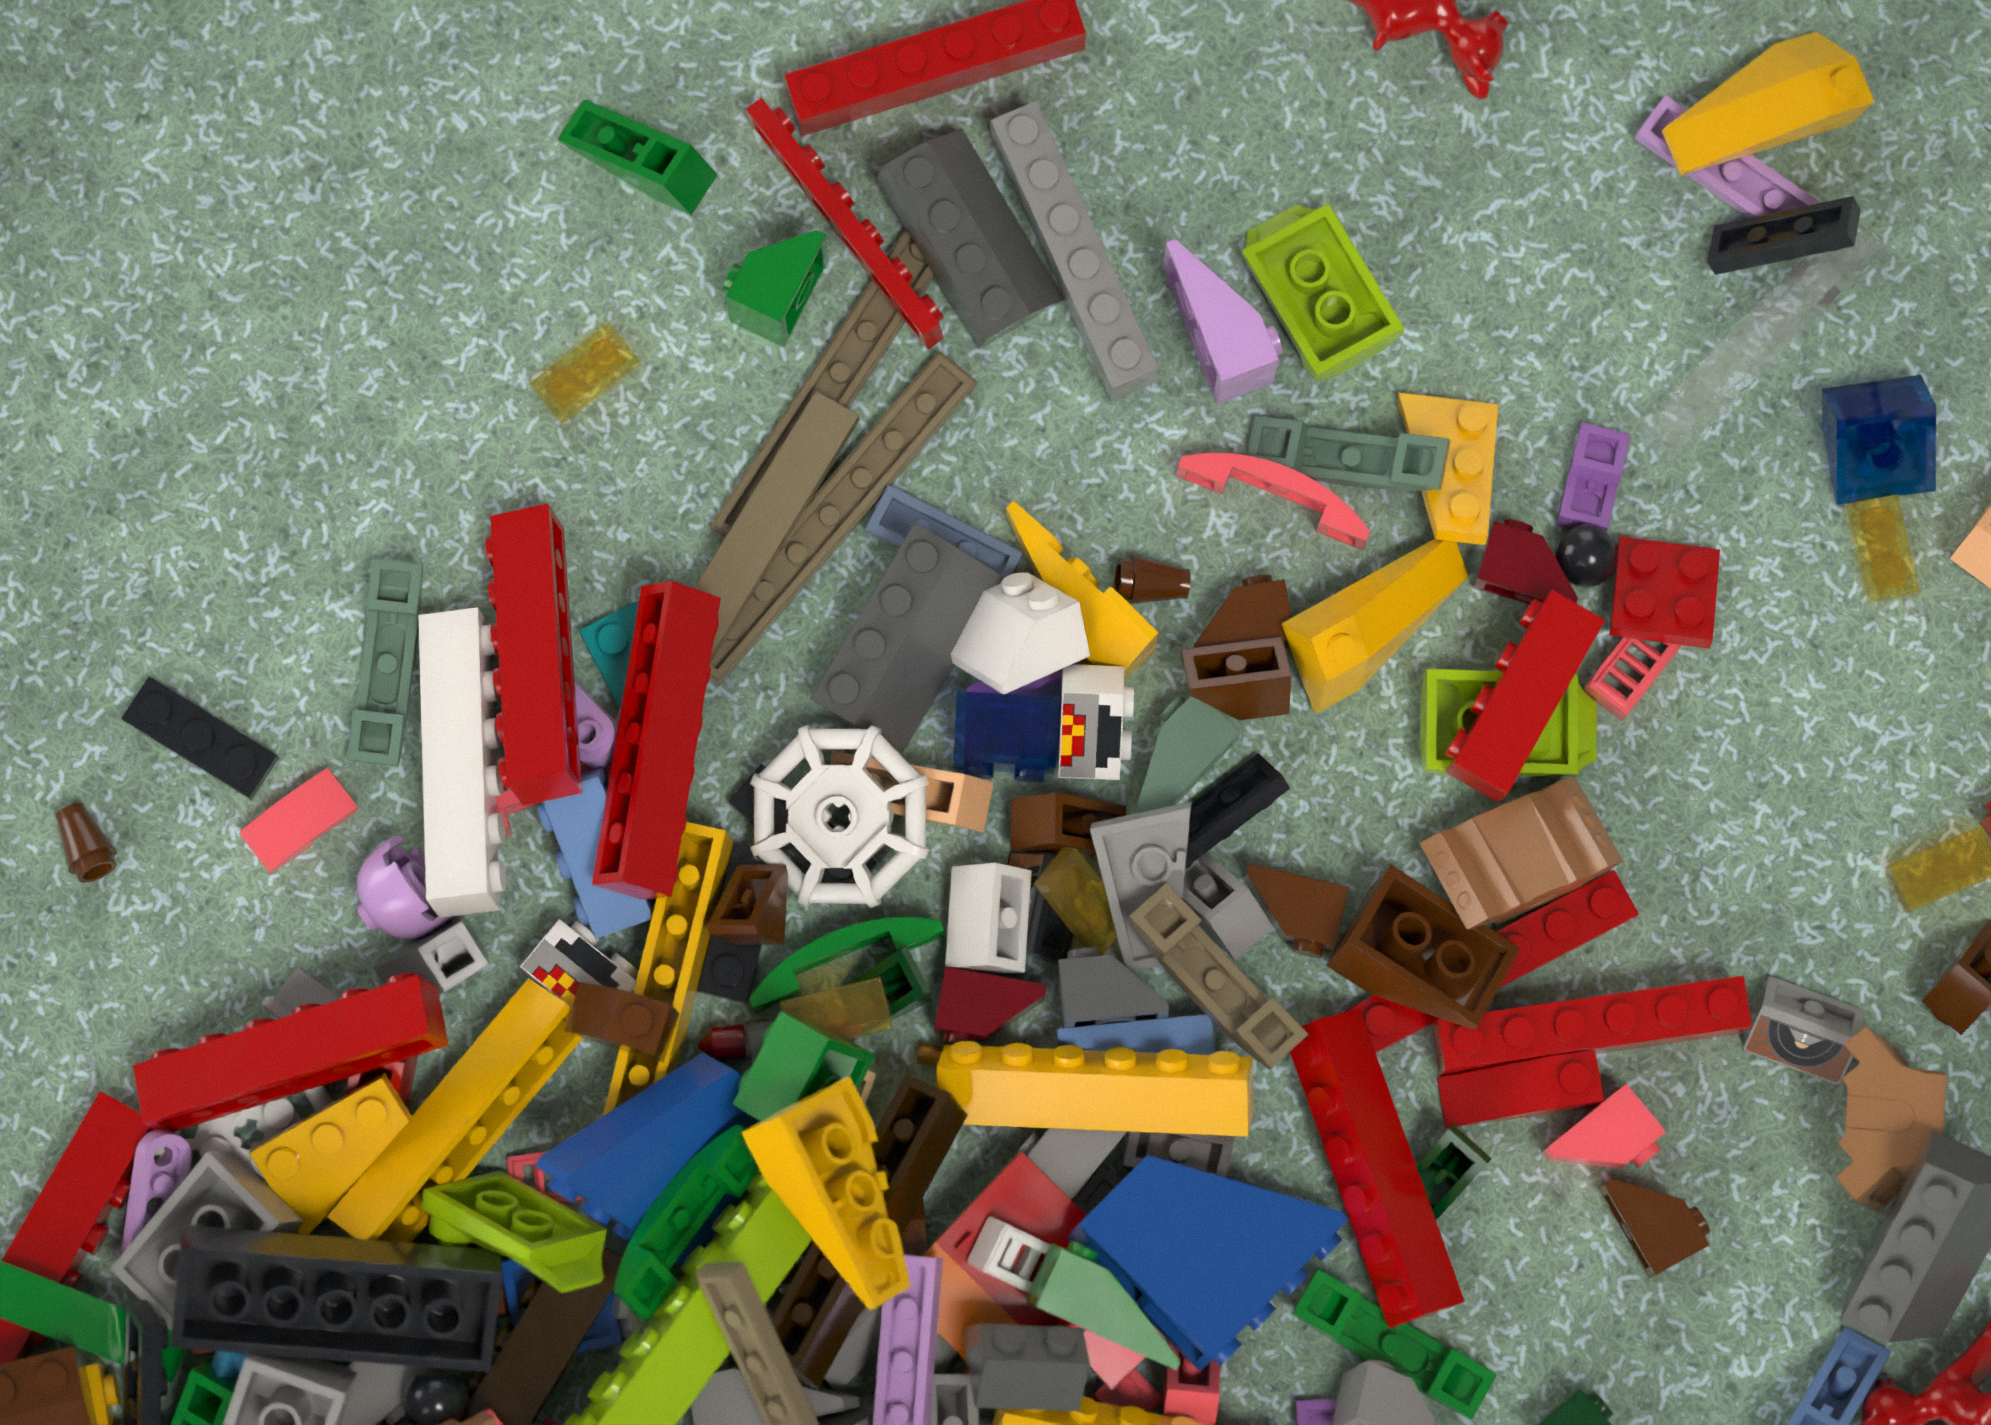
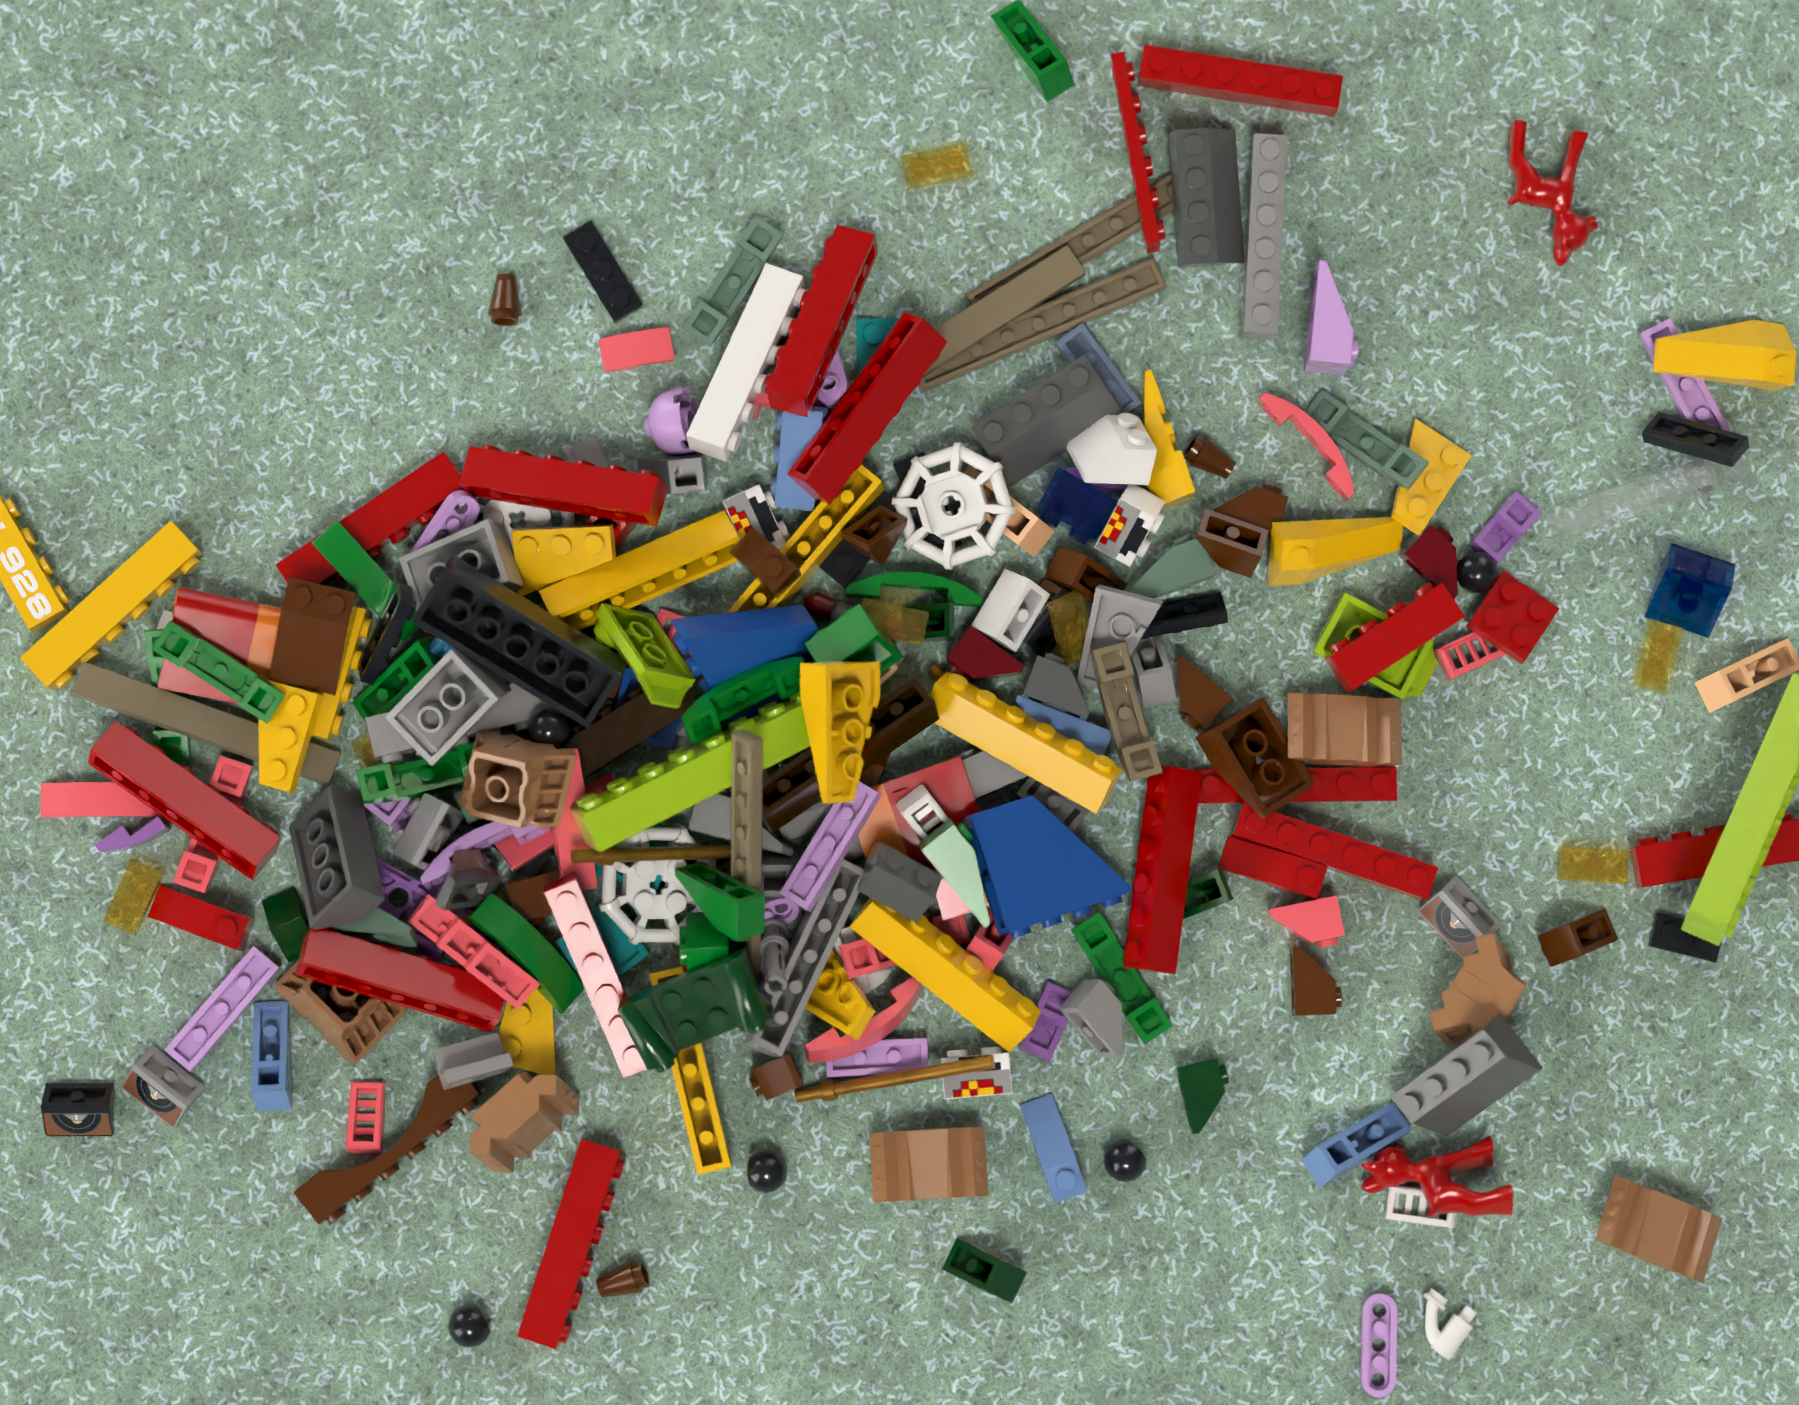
camera: 30 degrees right, 5 degrees up
(775, 285) = (1075, 169): green slope -> none
(1320, 290) = (1400, 333): lime slope -> none

